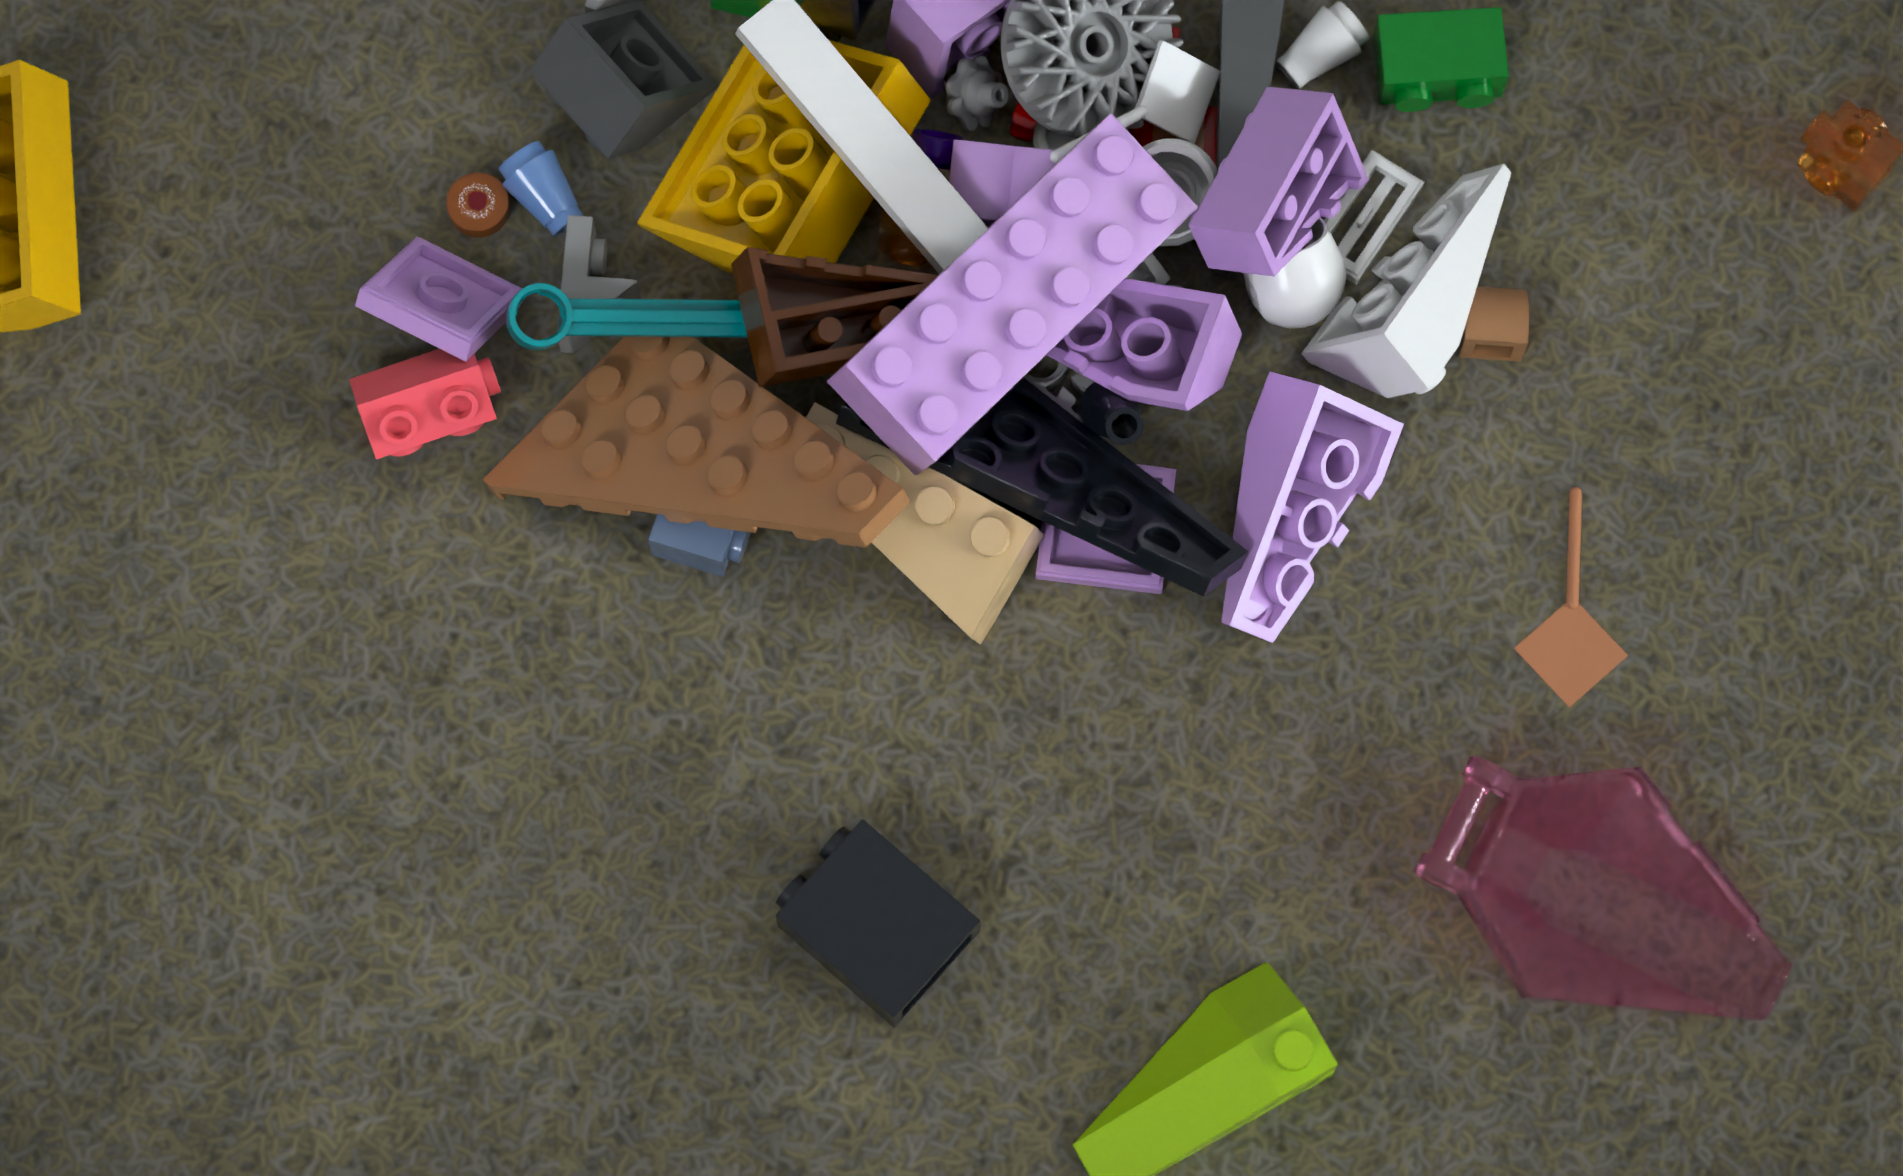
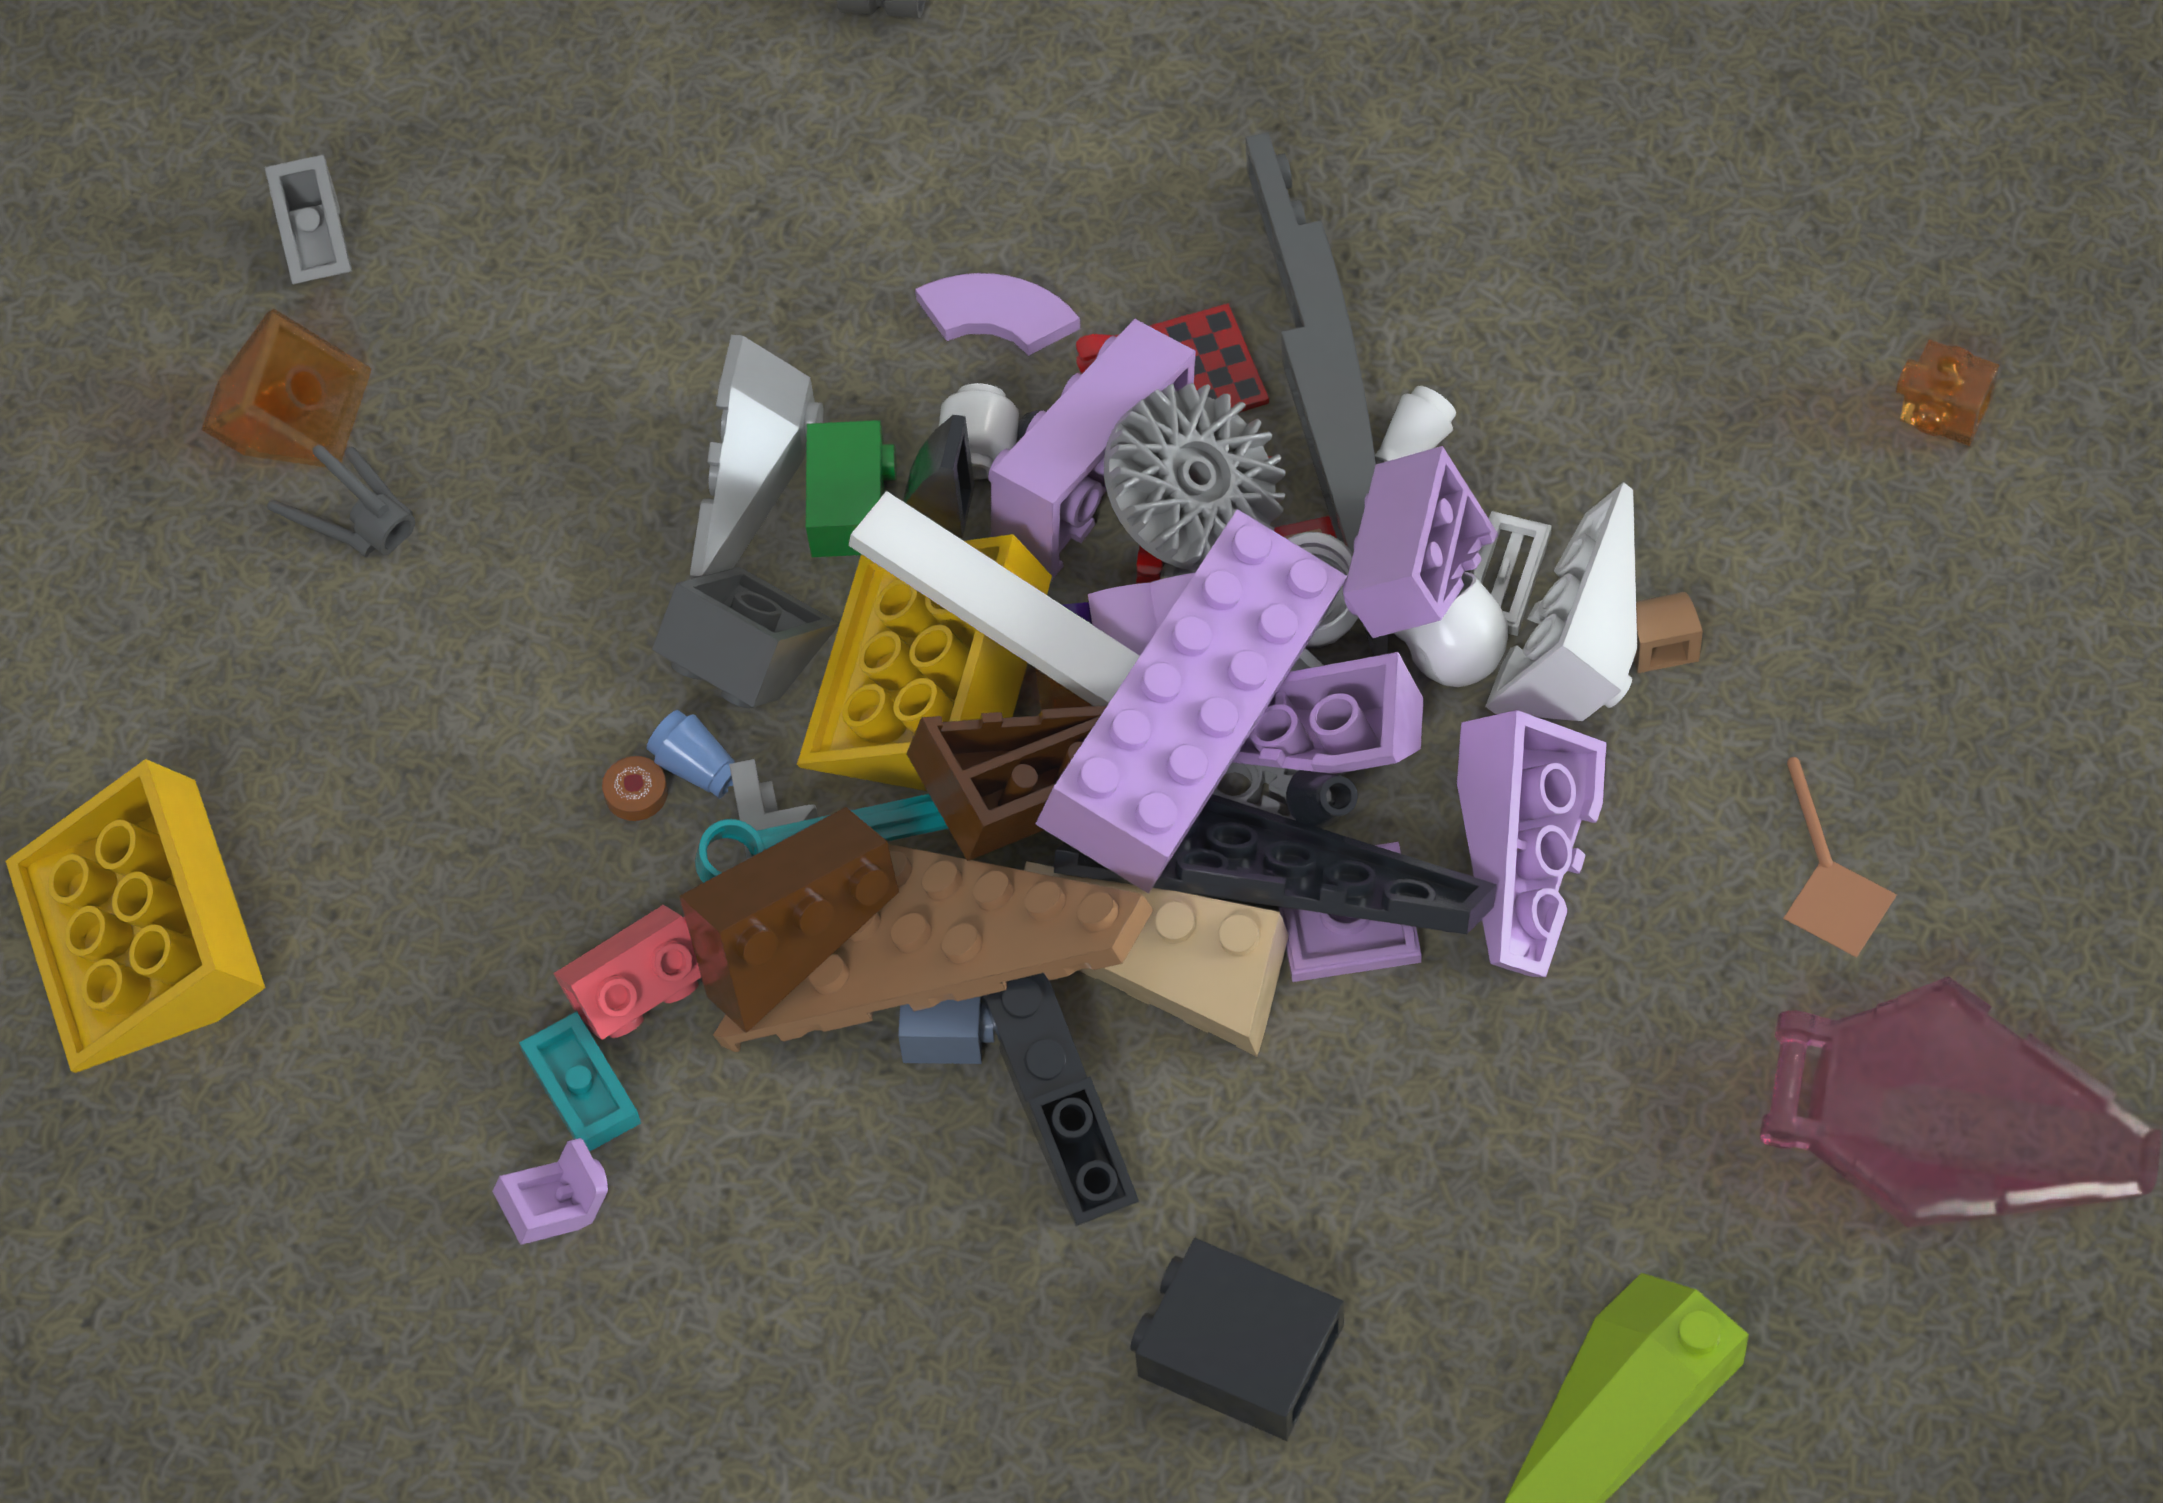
camera: 10 degrees left, 15 degrees down
(291, 599) = (554, 1195): none -> lavender bracket
(346, 492) = (580, 1082): none -> teal plate
(438, 298) = (622, 874): lavender tile -> none
(577, 390) = (786, 912): none -> reddish brown wedge
(782, 647) = (1059, 1099): none -> black slope
(975, 93) = (1093, 558): light grey plant -> none
(1171, 96) = (1285, 499): white piece -> none
(1440, 58) = (1529, 412): green brick -> none

